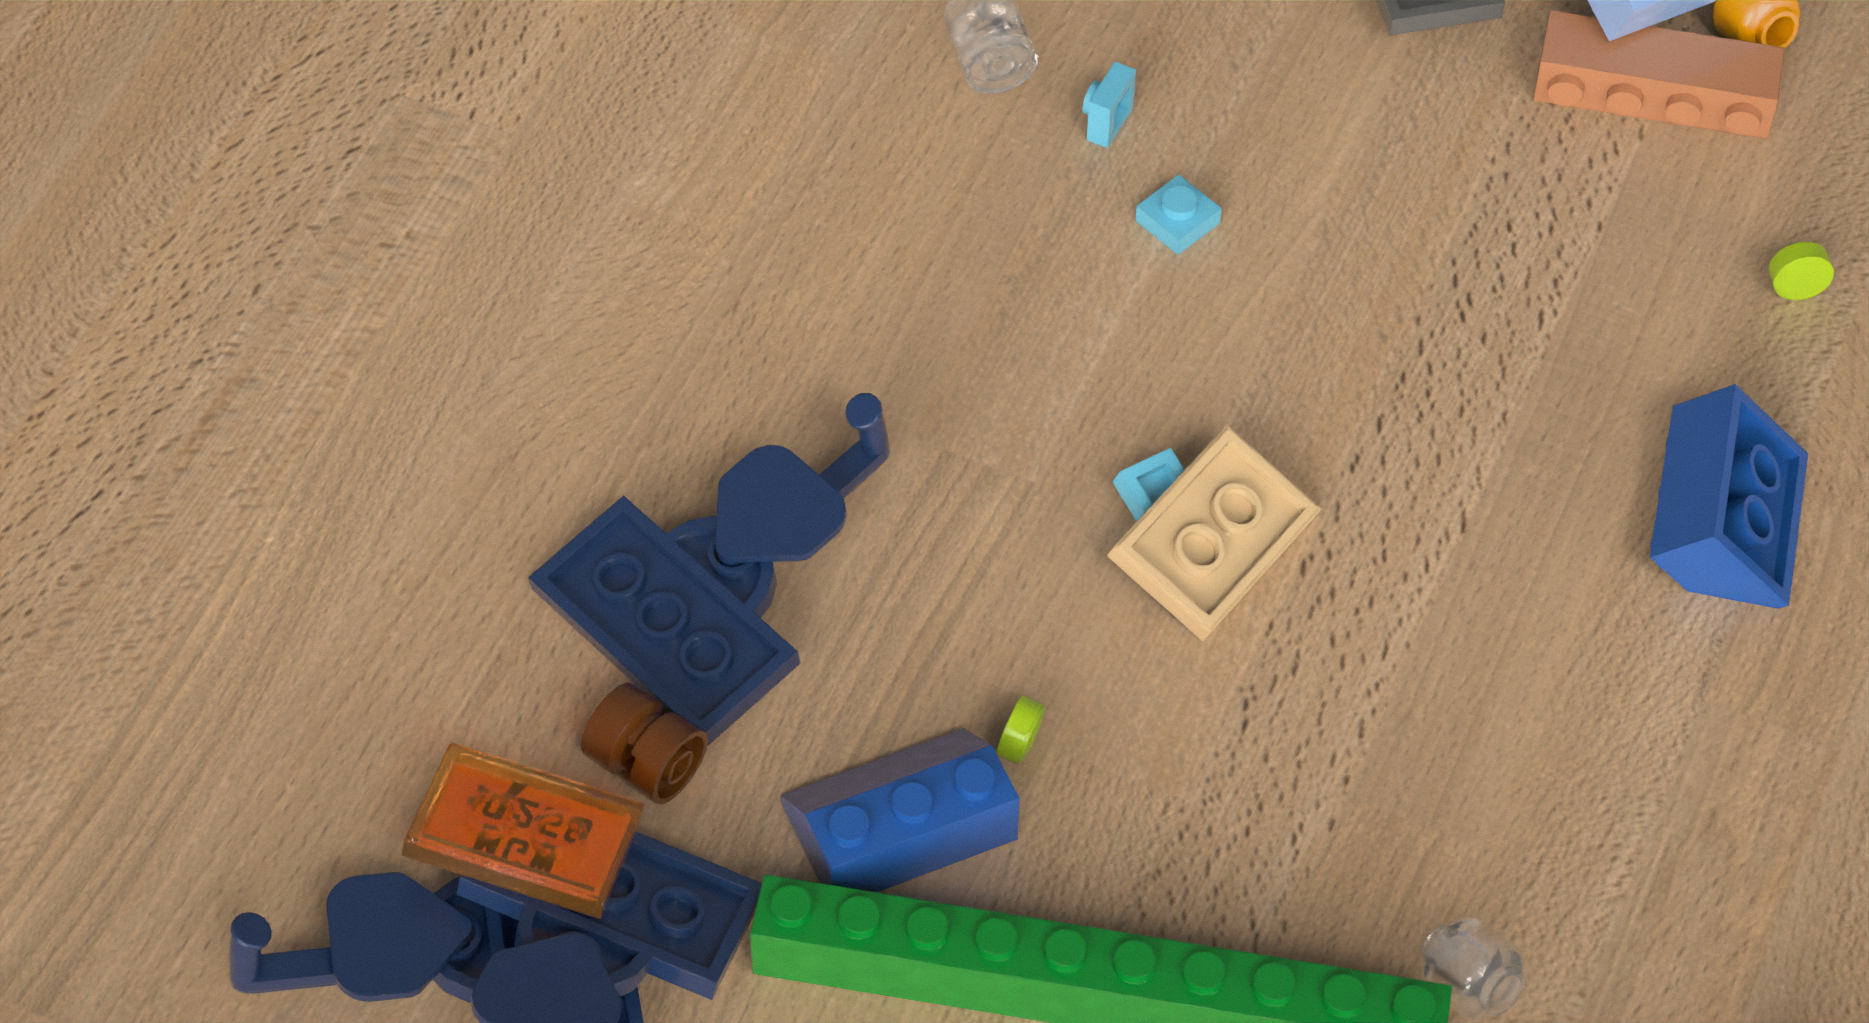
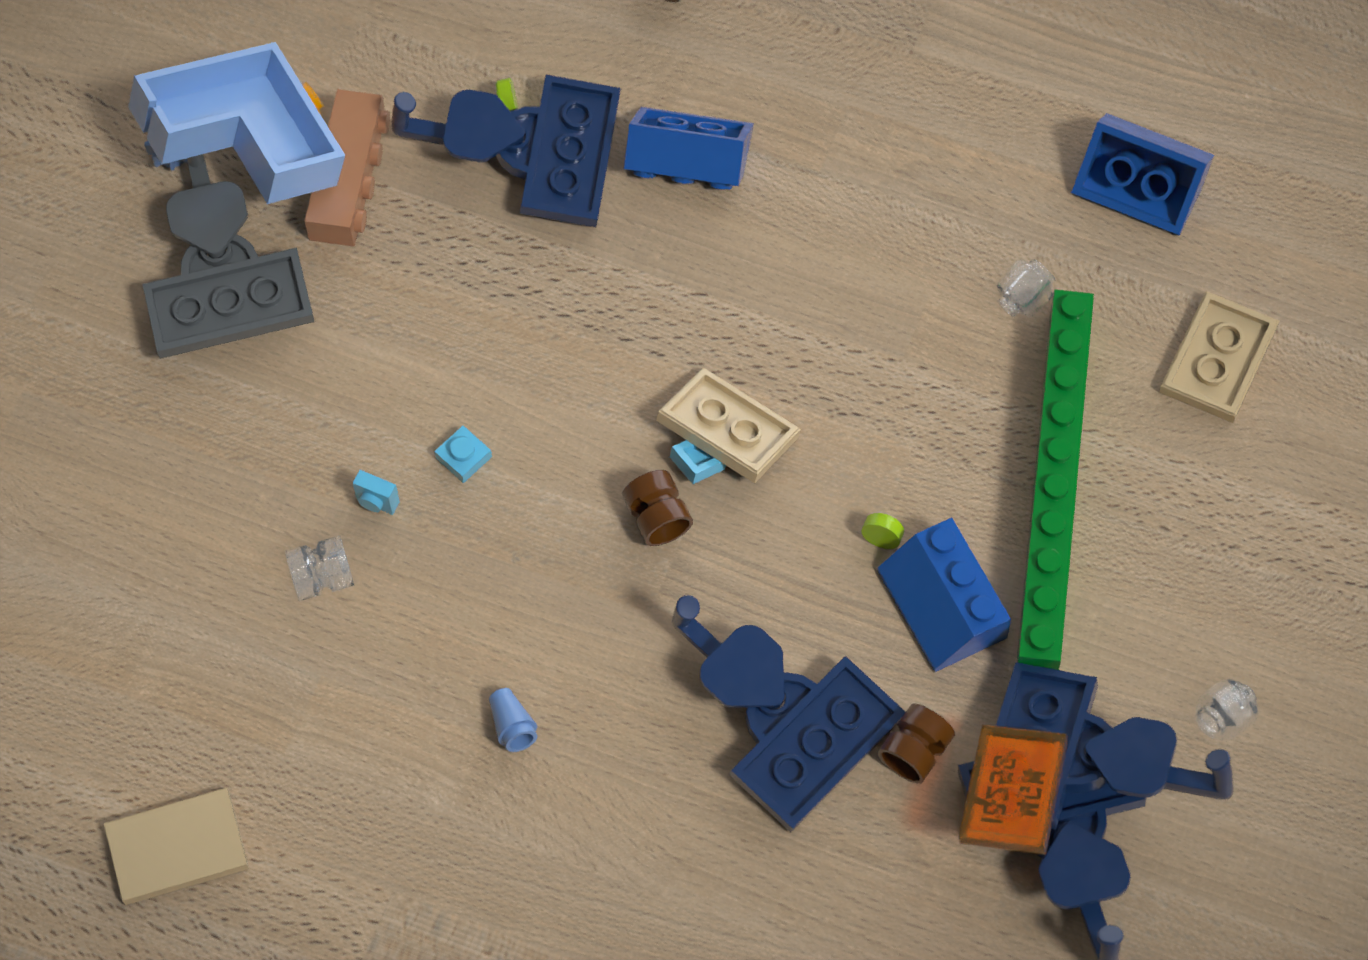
camera: 90 degrees left, 10 degrees up
(741, 254) = (512, 721): none -> medium blue cone
(1059, 432) = (656, 505): none -> reddish brown wheel
(1697, 321) = (562, 145): none -> dark blue plate

